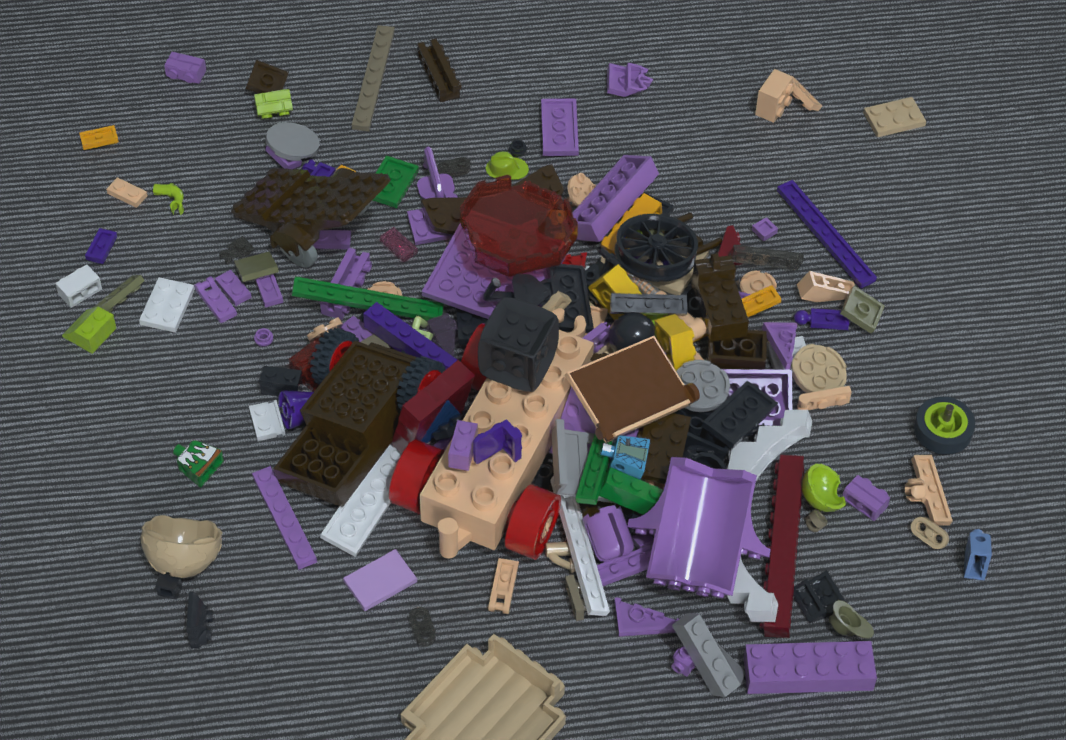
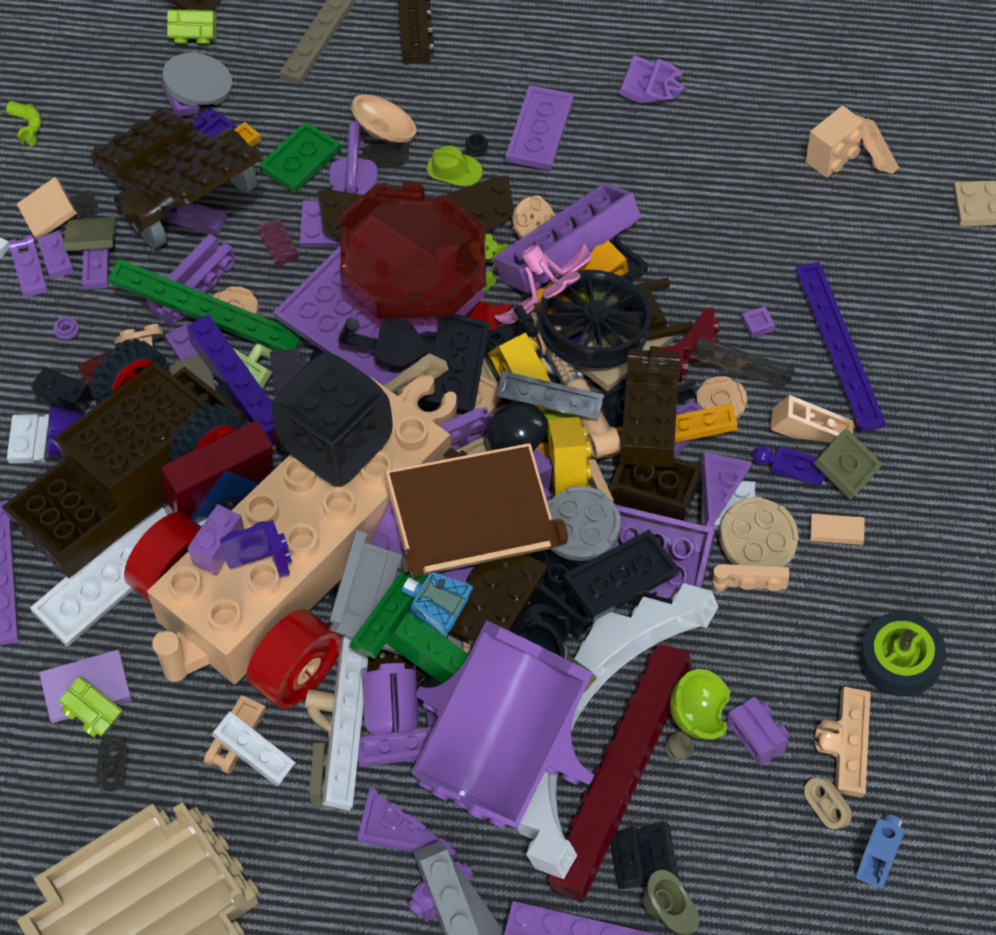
camera: 20 degrees right, 5 degrees up
(214, 255) = (46, 208): none -> light nougat tile
(394, 591) = (90, 707): none -> lime brick
(445, 143) = (383, 119): none -> light nougat dish
(523, 590) = (253, 748): none -> white plate
(606, 216) = (537, 263): none -> bright pink plant
(869, 355) = (837, 529): none -> light nougat tile

